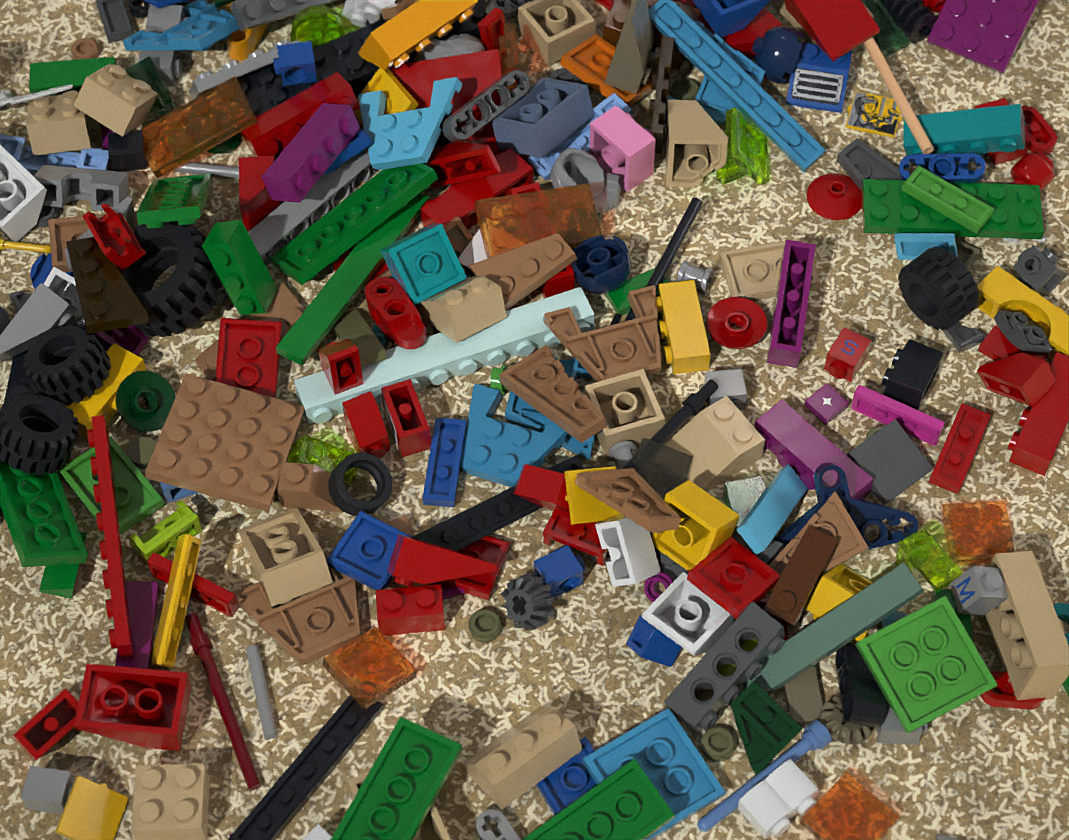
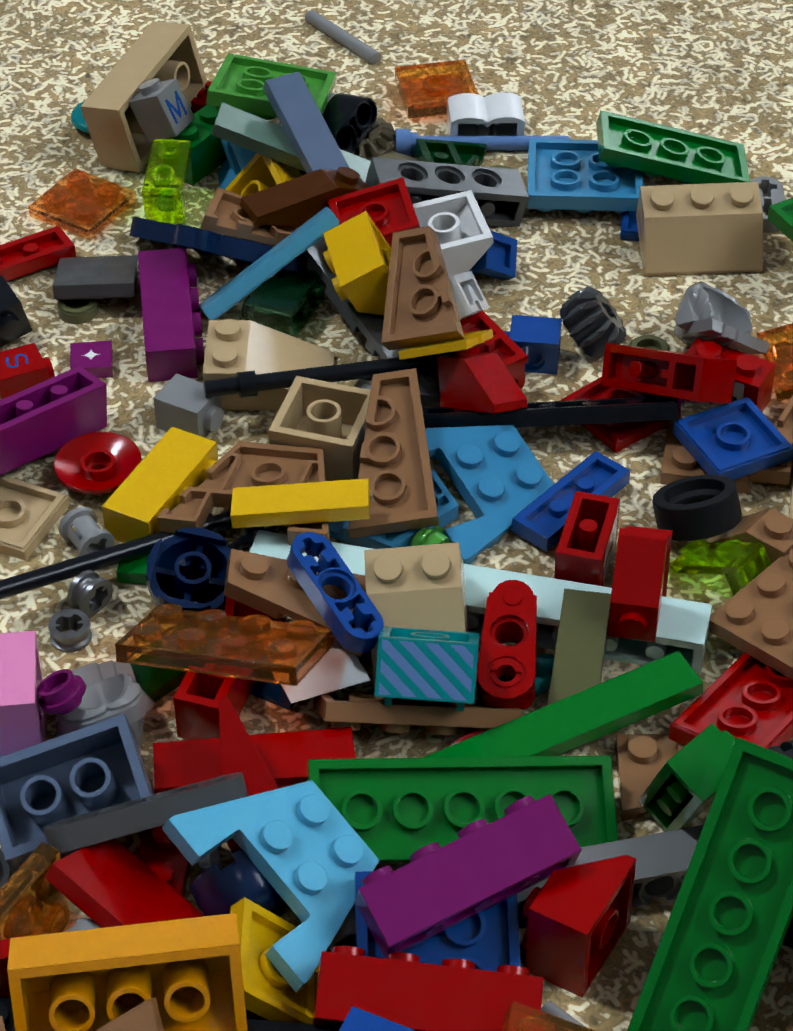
camera: 145 degrees left, 15 degrees down
(438, 640) = (716, 318): none -> light grey hair
(508, 273) = (335, 611): none -> blue beam
(574, 321) = (300, 503): none -> yellow tile
(590, 147) = (61, 692): none -> magenta plate
(652, 217) = (70, 640): none -> flat silver bush
(656, 244) = (89, 592): none -> flat silver bush
(661, 466) = (344, 356): clear smoke piece -> none
(851, 617) = (303, 123): none -> sand blue tile
(886, 410) = (39, 306): dark pink tile -> none

